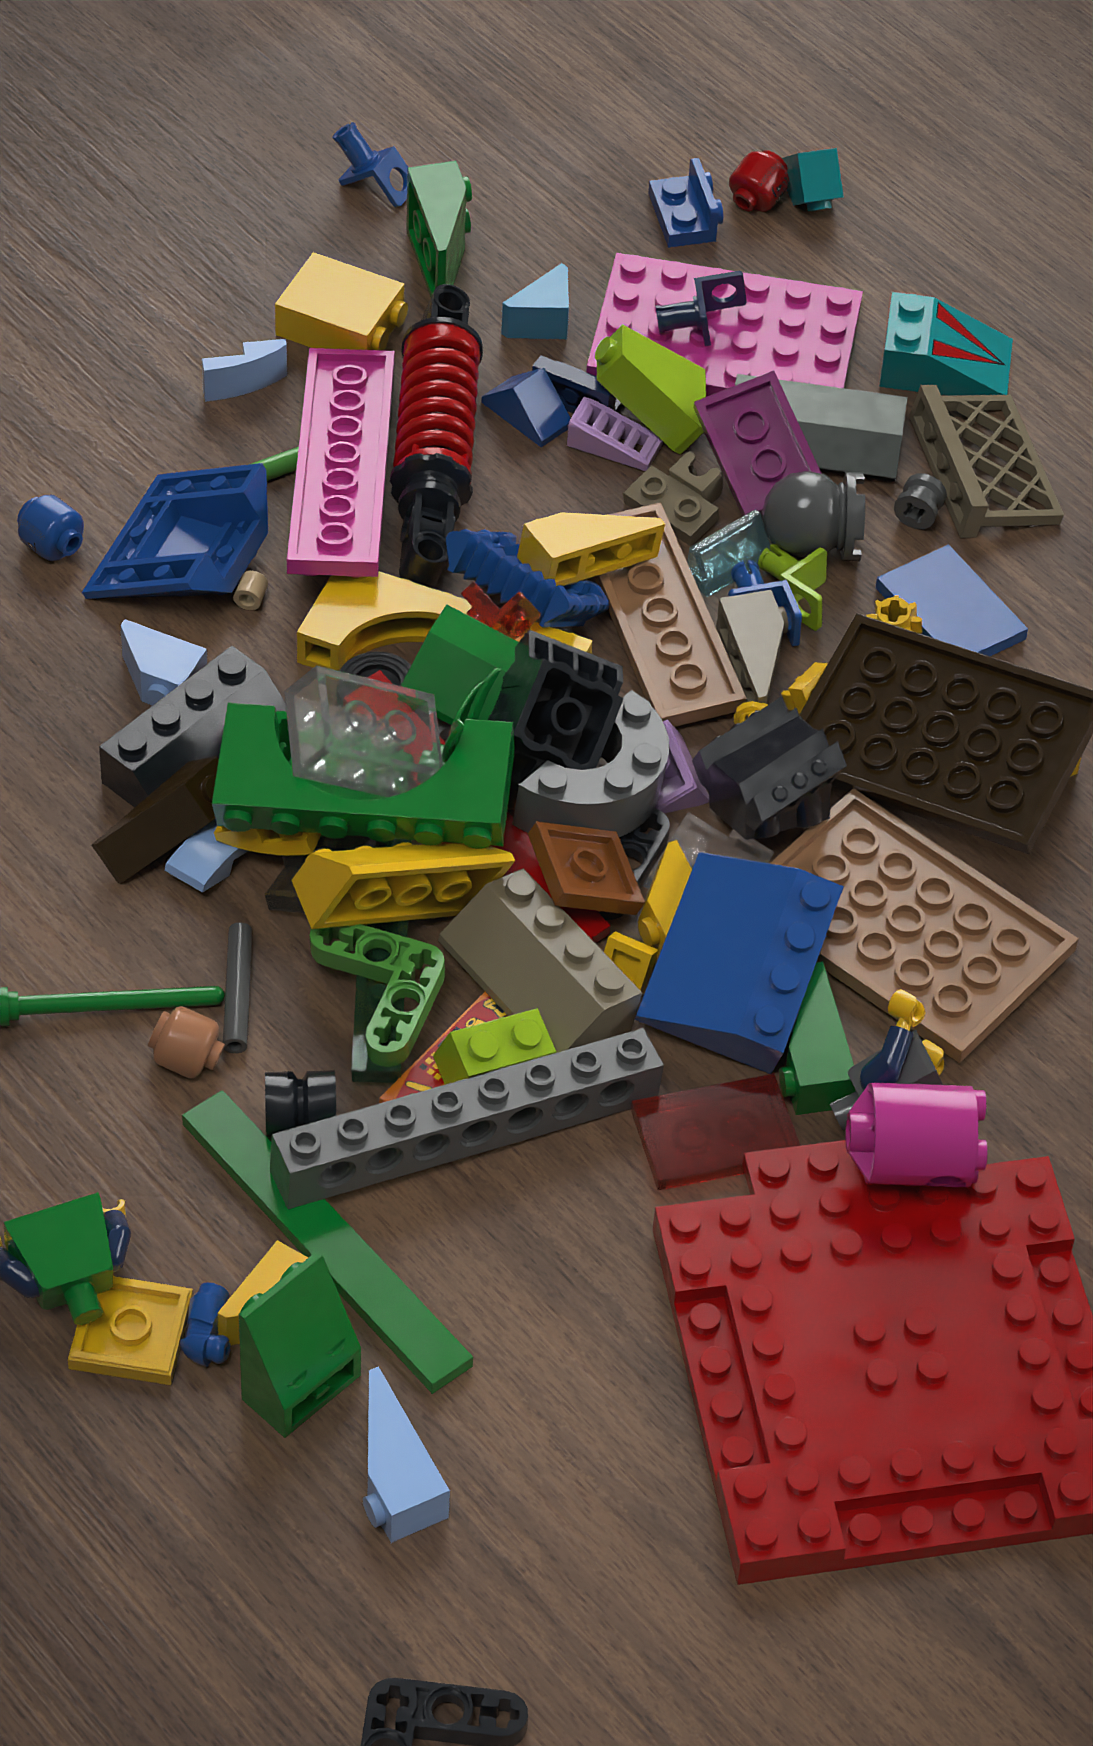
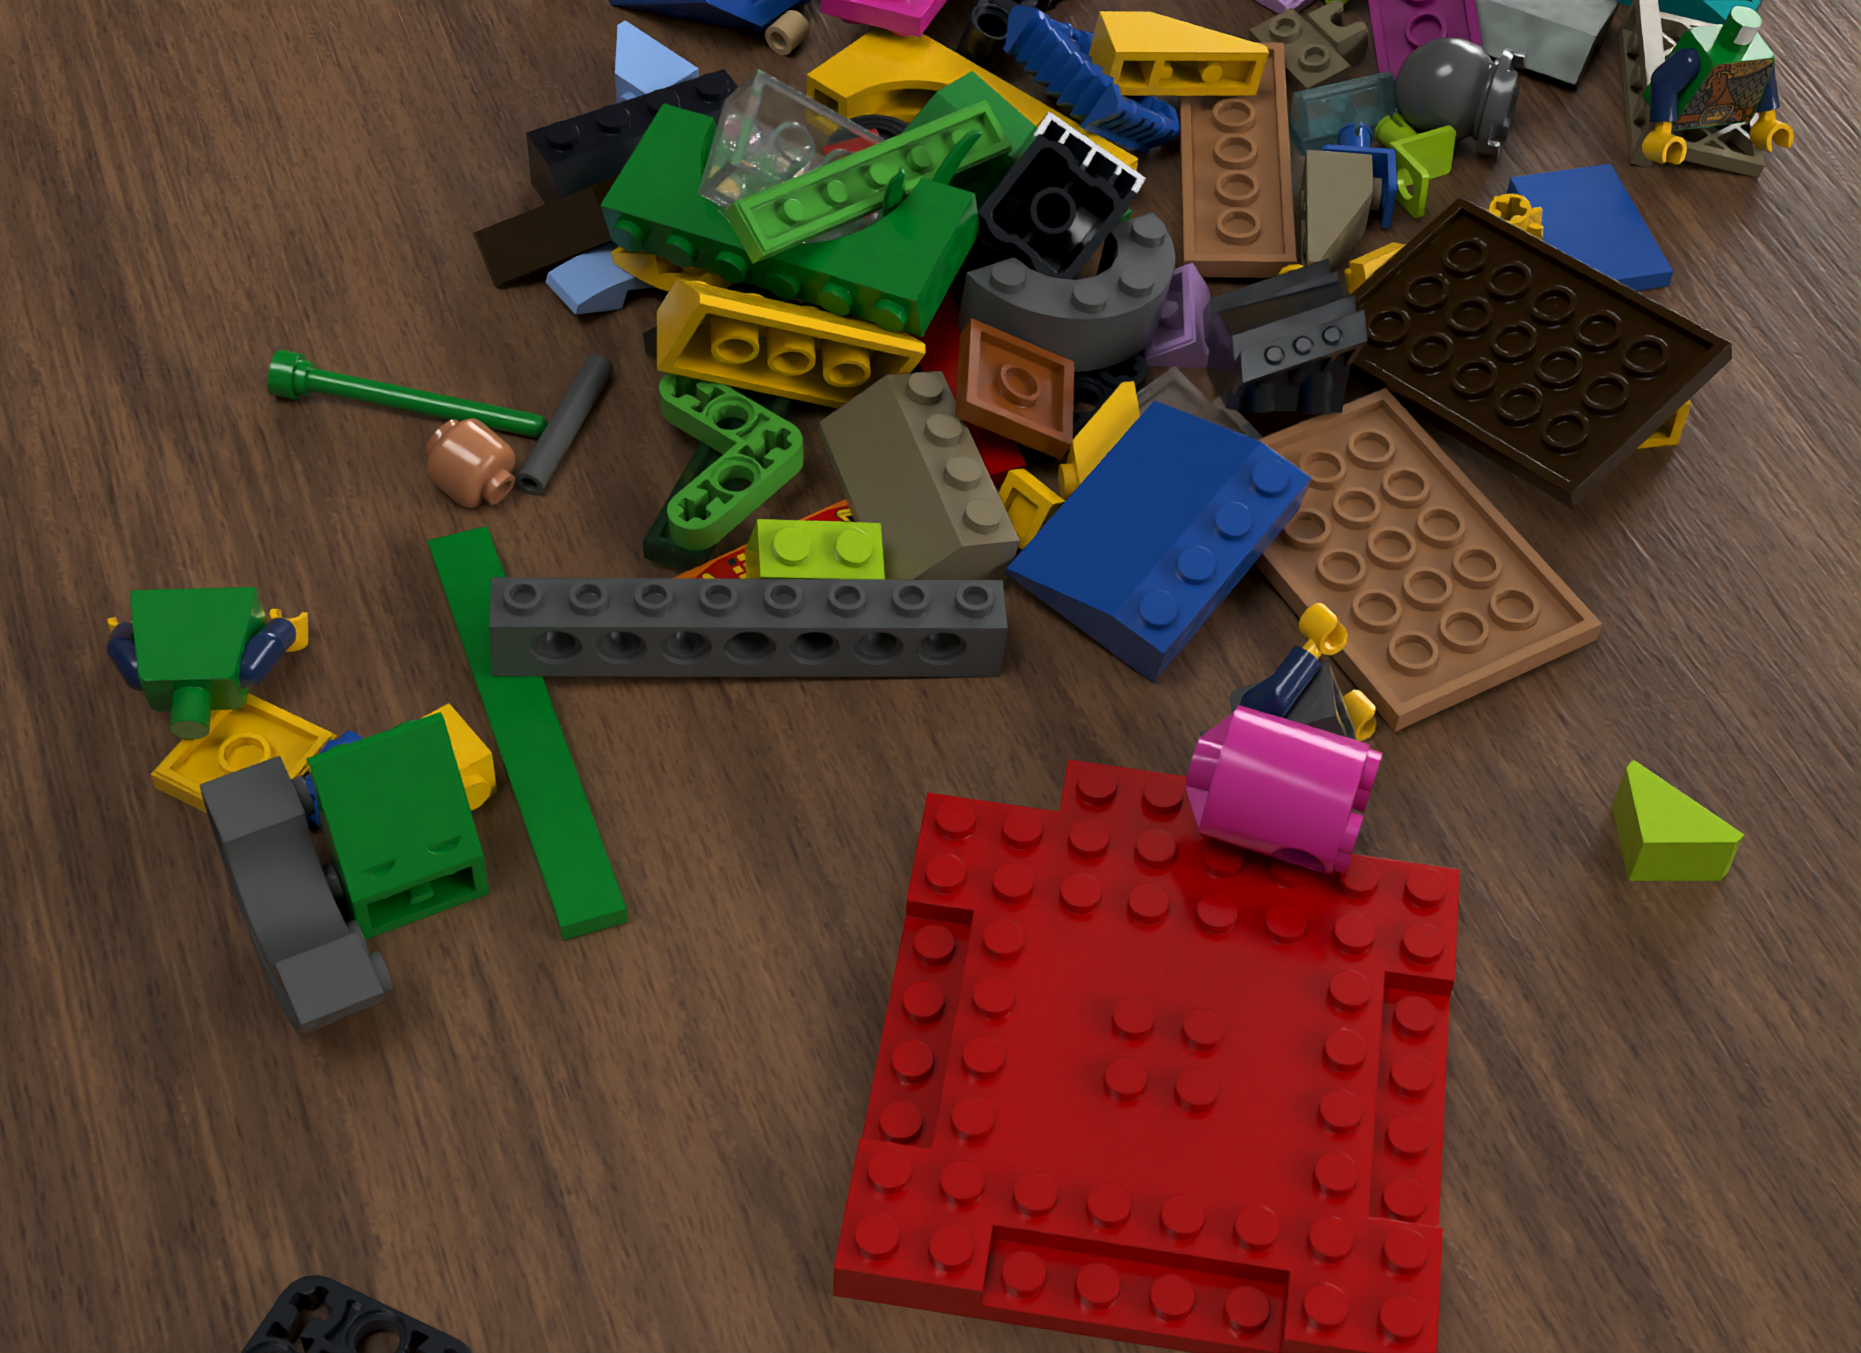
camera: 20 degrees right, 0 degrees up
(236, 1431) = (289, 899): none -> dark grey brick
(298, 1101) = (549, 550): black wheel -> none
(402, 1478) = (460, 1015): light blue slope -> none
(419, 731) = (857, 183): none -> bright green tile
(511, 619) = (1034, 100): clear red bracket -> none
(709, 1128) = (1030, 722): clear red tile -> none
(817, 1051) = (1211, 662): green slope -> none
(920, 501) = (1593, 111): dark grey wheel -> none
(1009, 461) = (1715, 80): none -> torso

